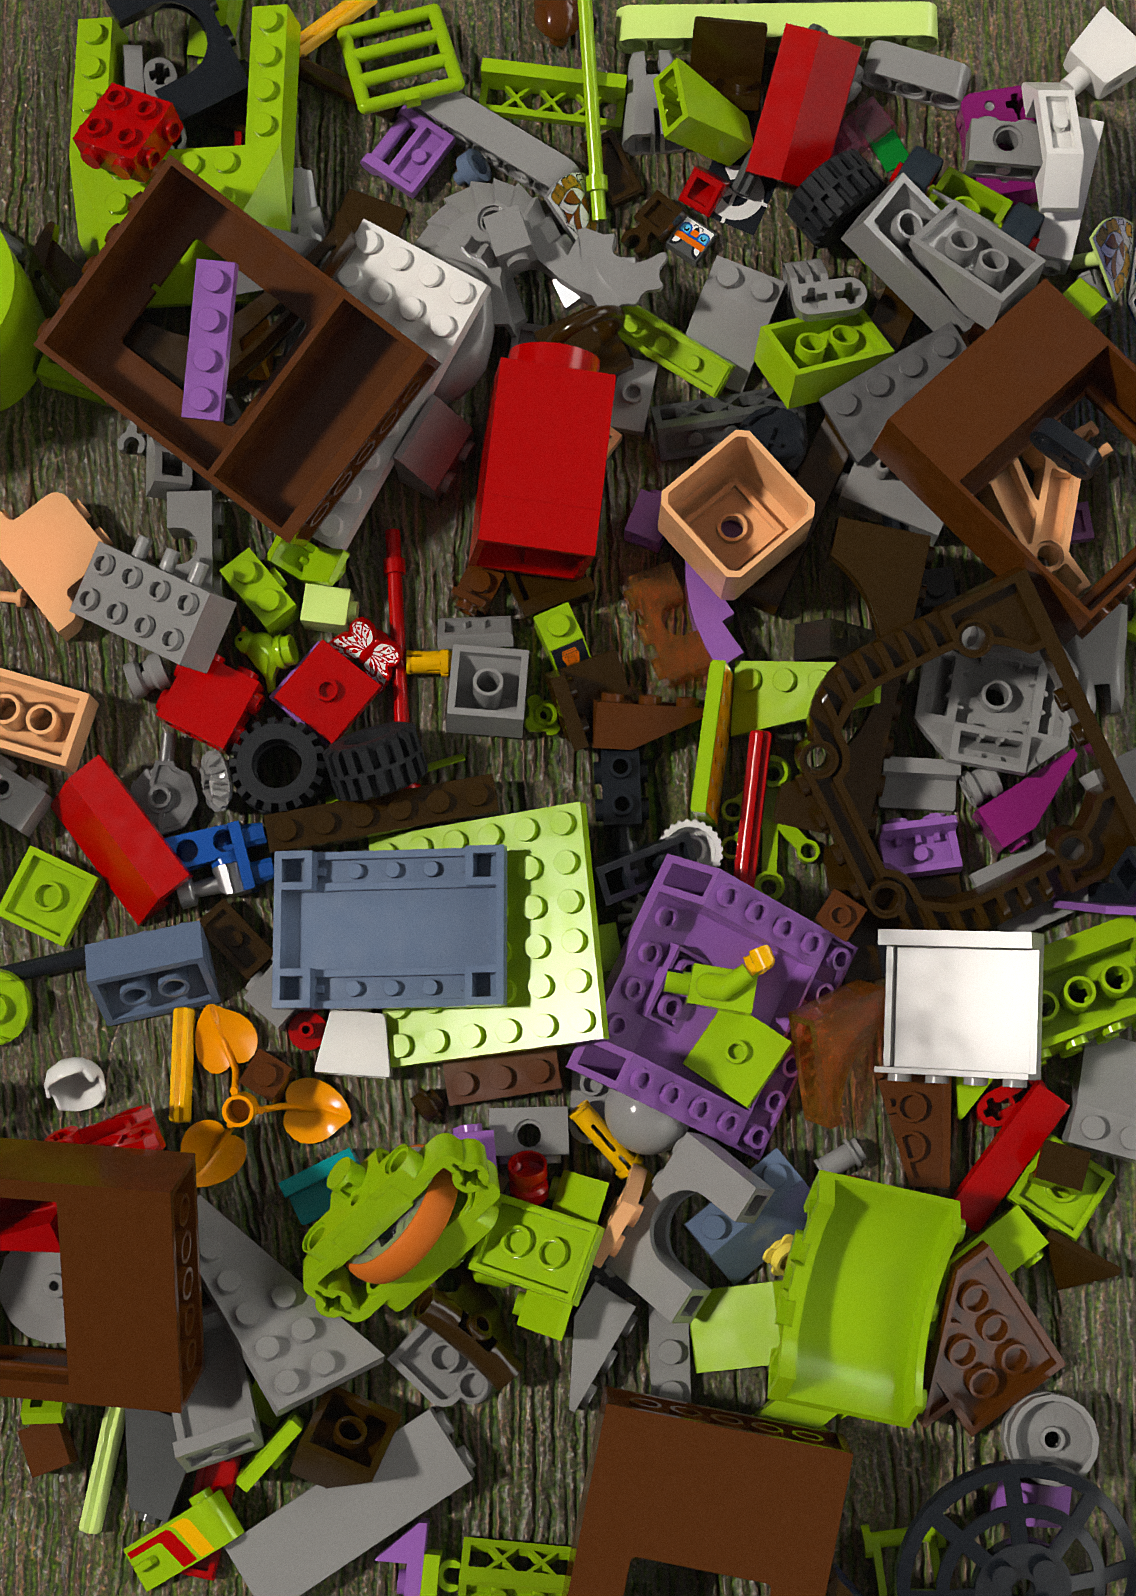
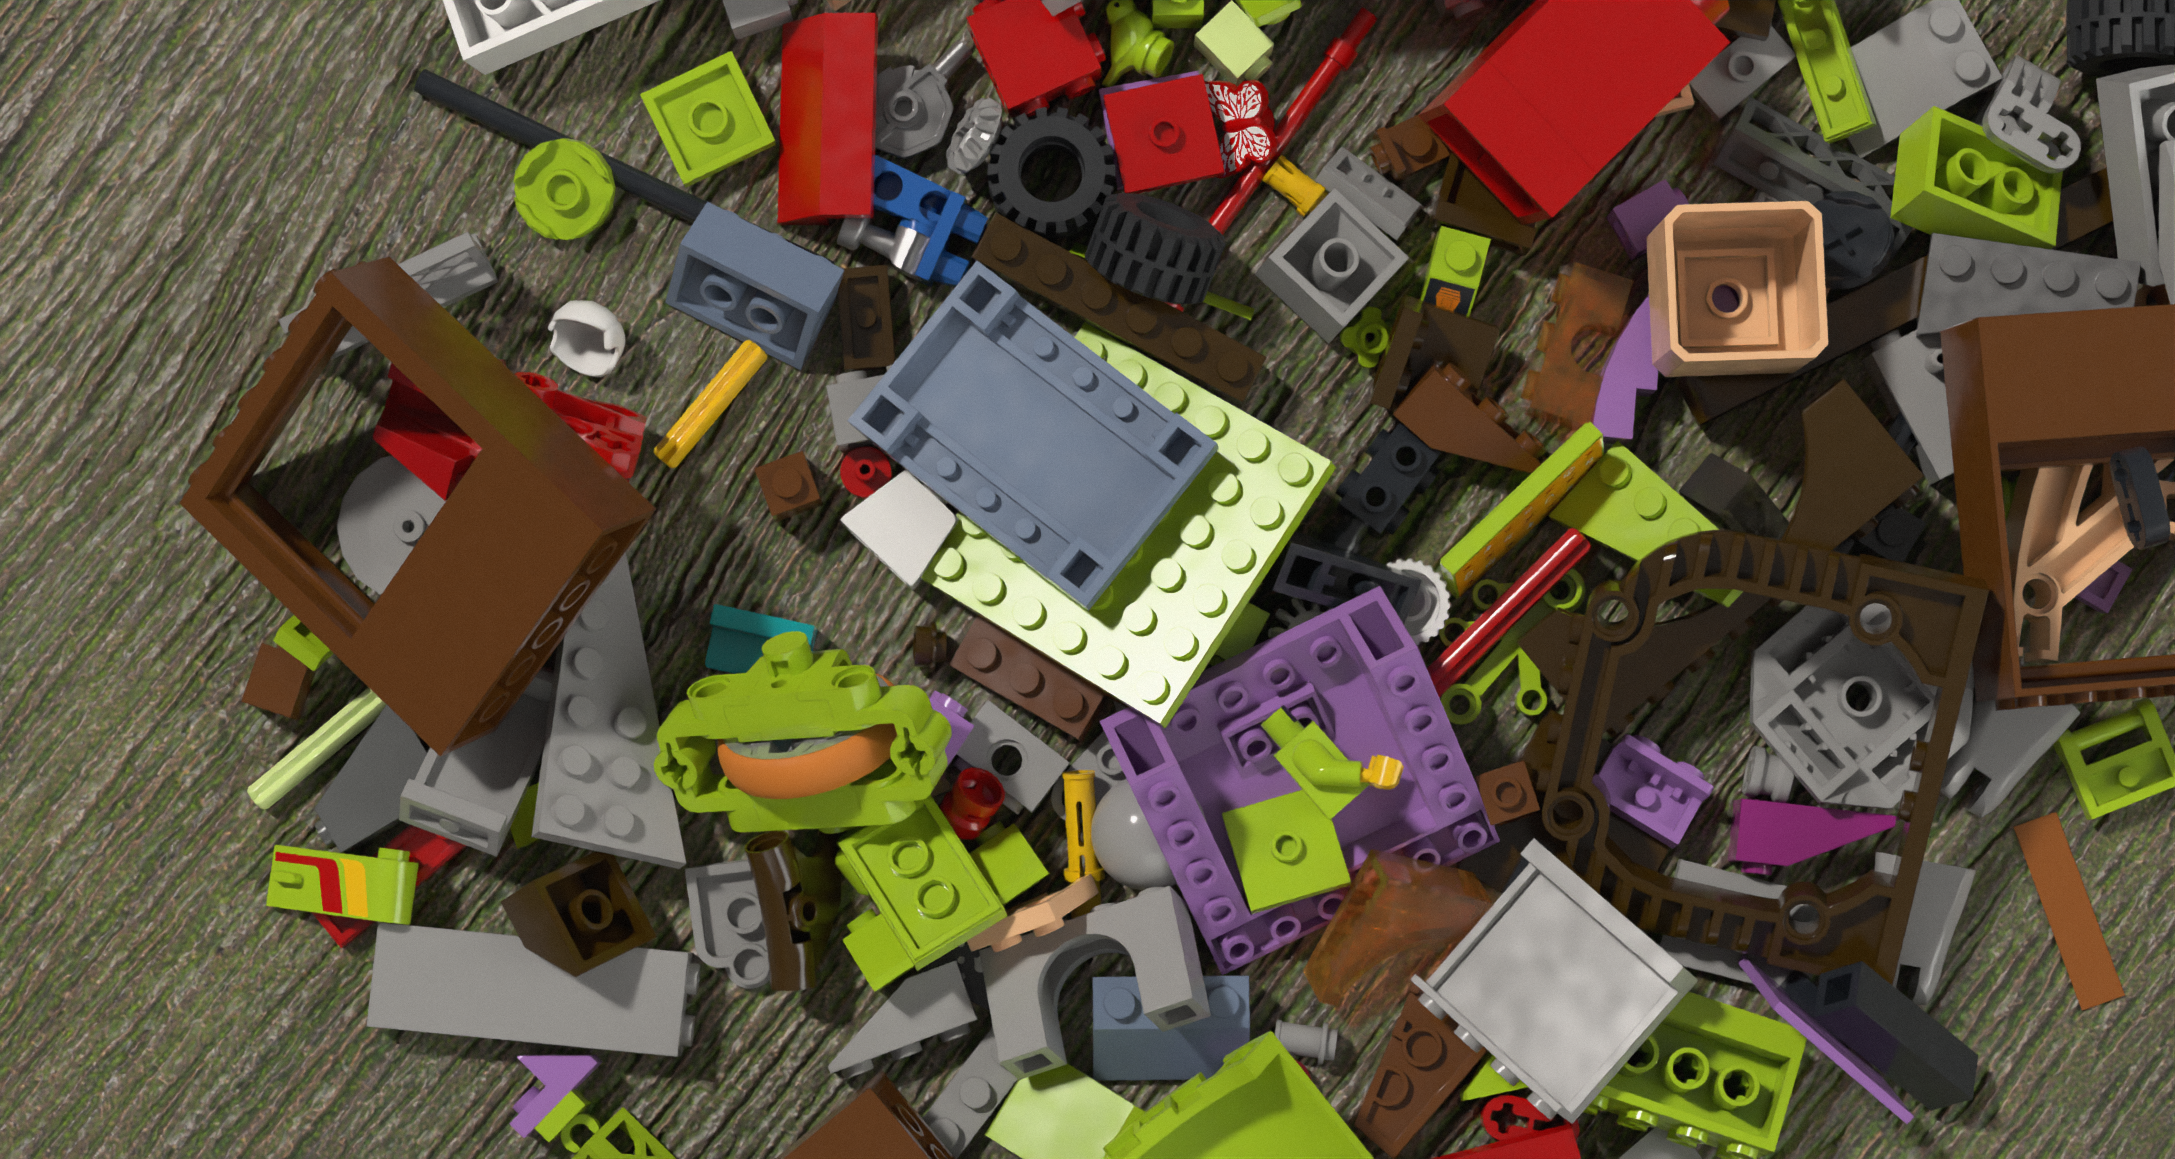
camera: 30 degrees right, 5 degrees up
(273, 1453) = (501, 869): lime plate -> none
(312, 1106) = (809, 554): light orange plant -> none
(778, 1254) = (1163, 1083): light yellow plate -> none
(919, 784) = (1704, 724): light grey panel -> none

